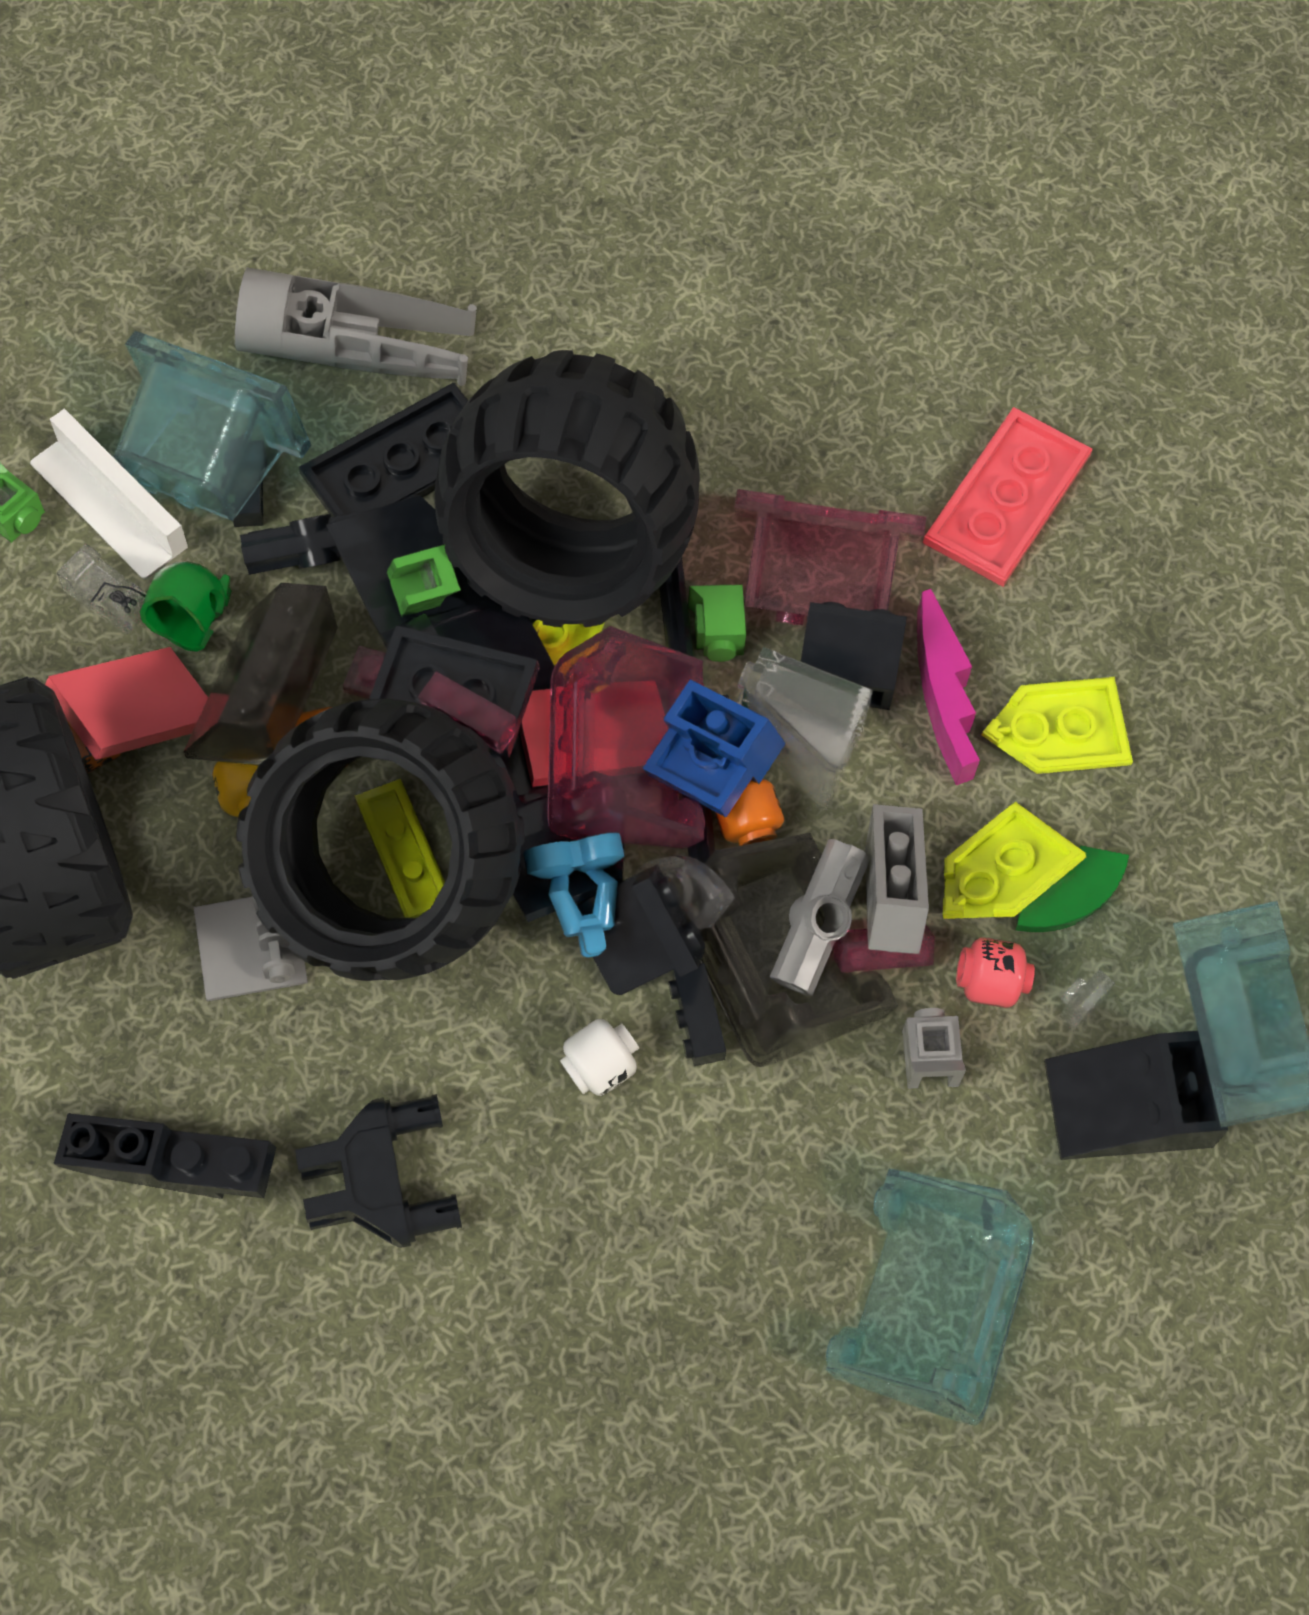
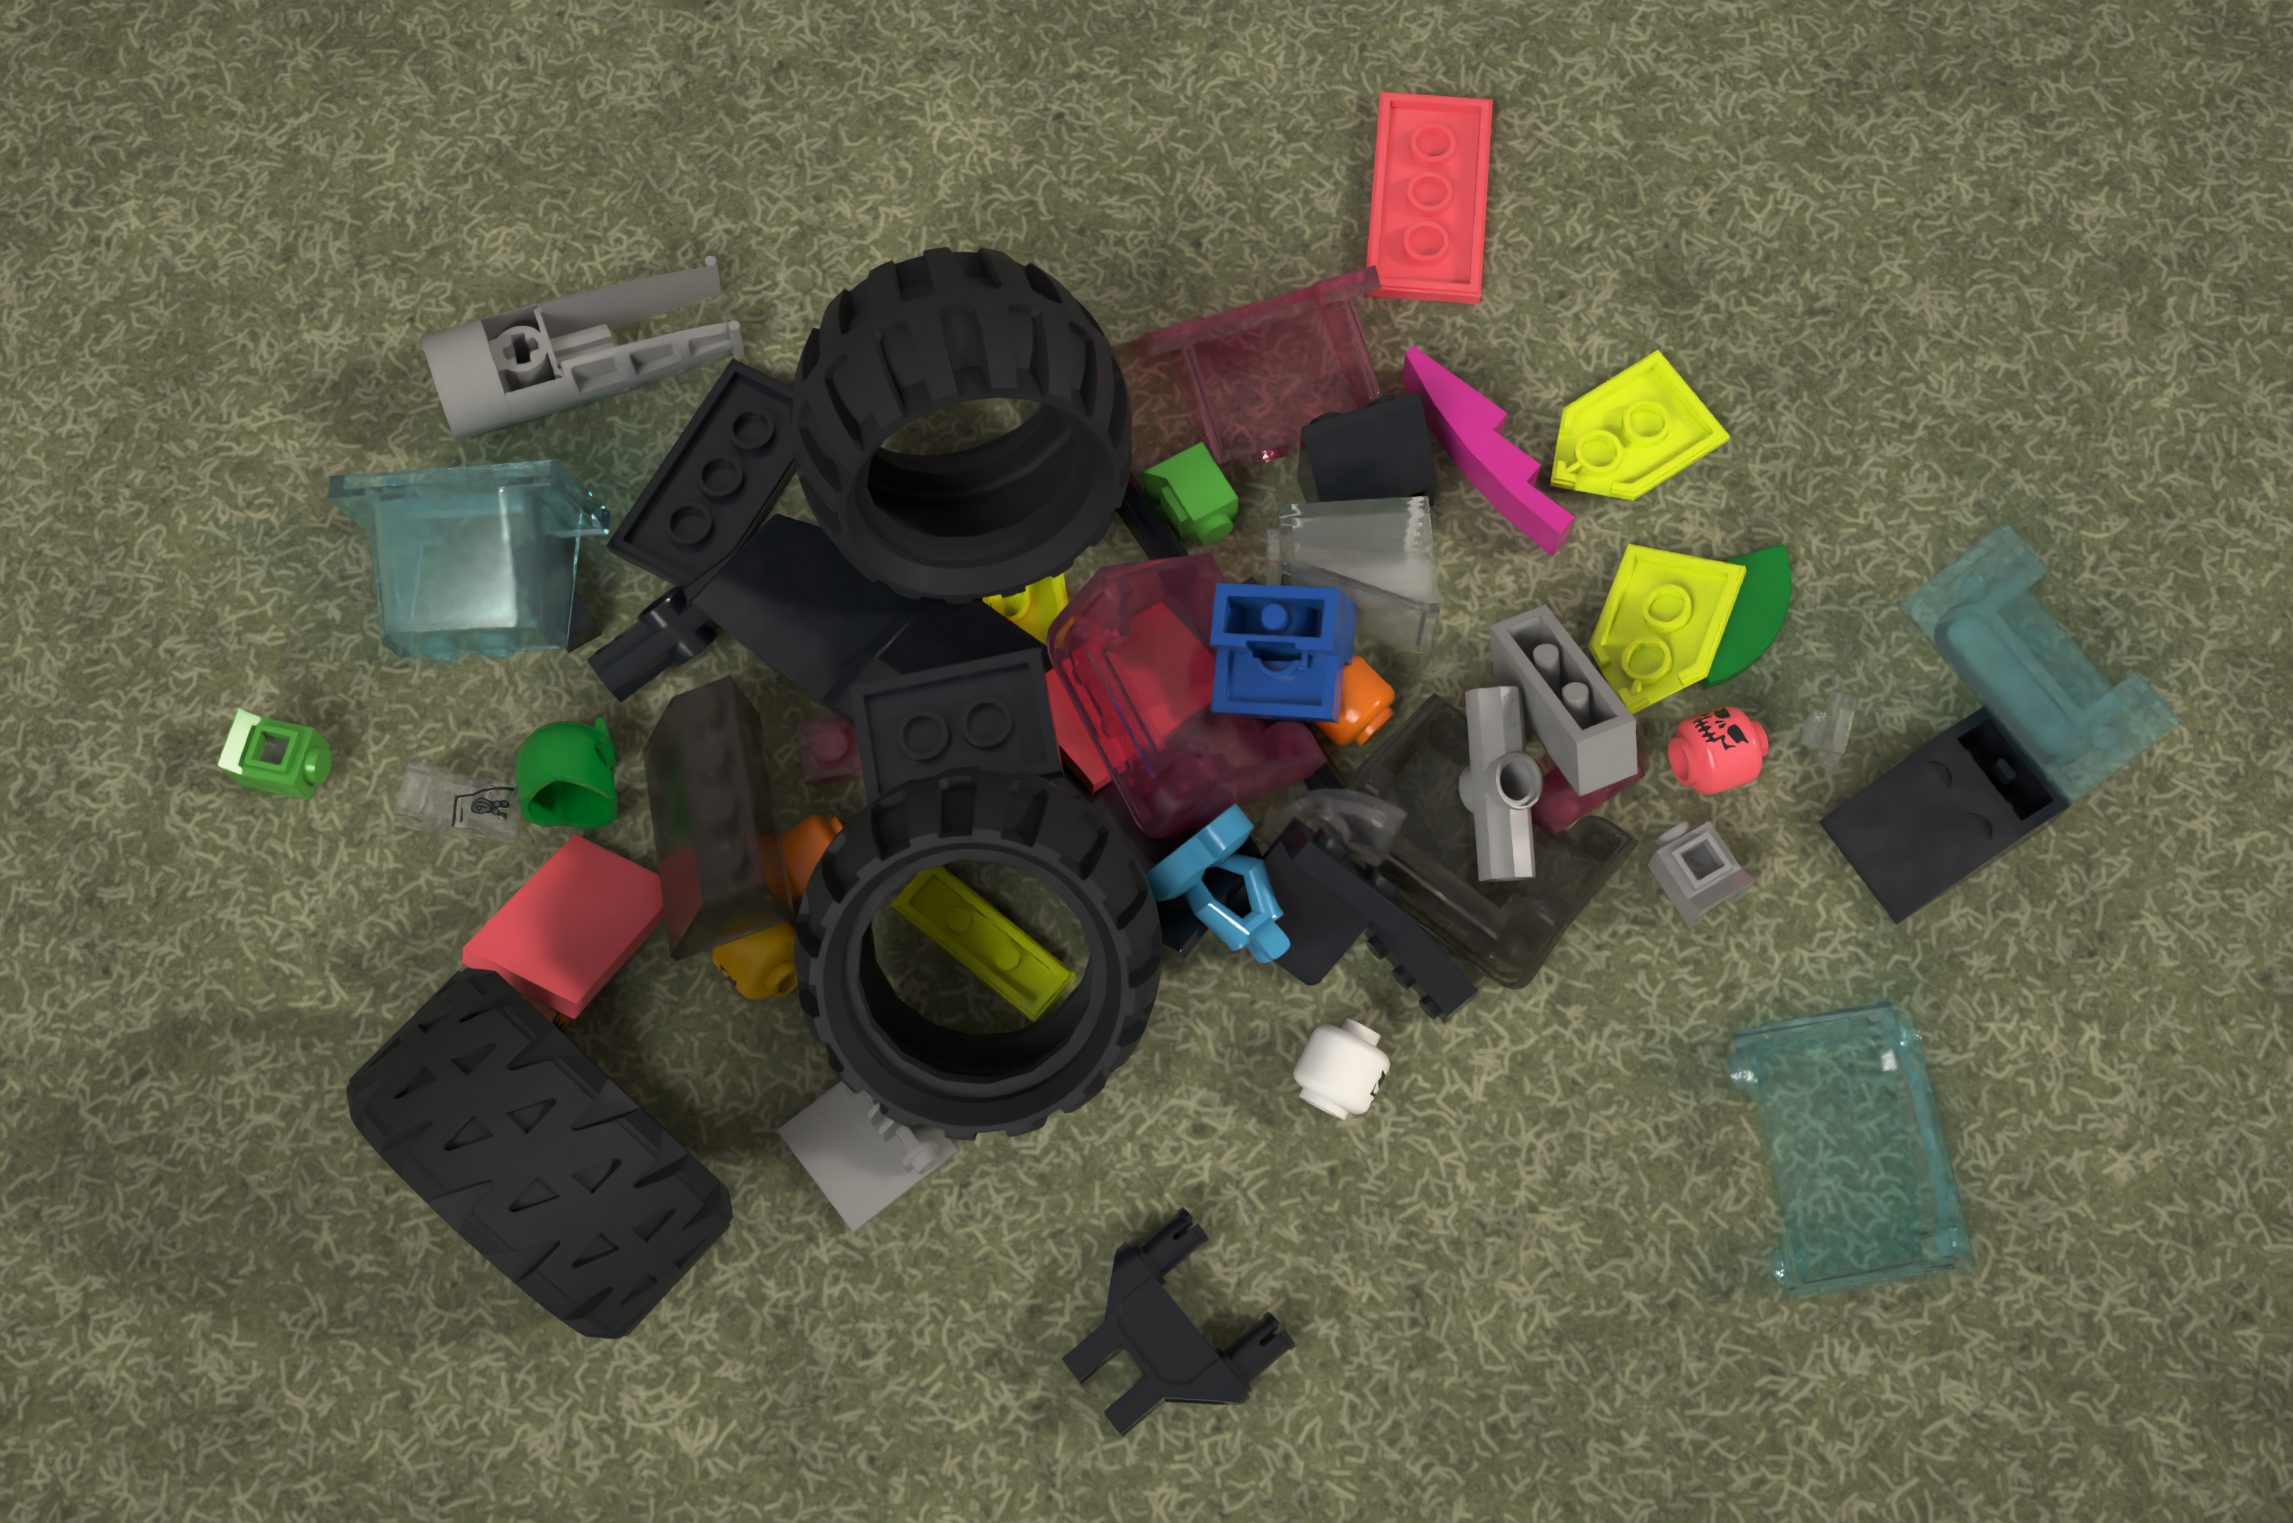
camera: 20 degrees left, 5 degrees up
(109, 498) = (399, 690): white panel -> none
(165, 1158) = (912, 1443): black slope -> none
(422, 580) = (841, 614): bright green window -> none
(470, 710) = (996, 747): clear pink piece -> none

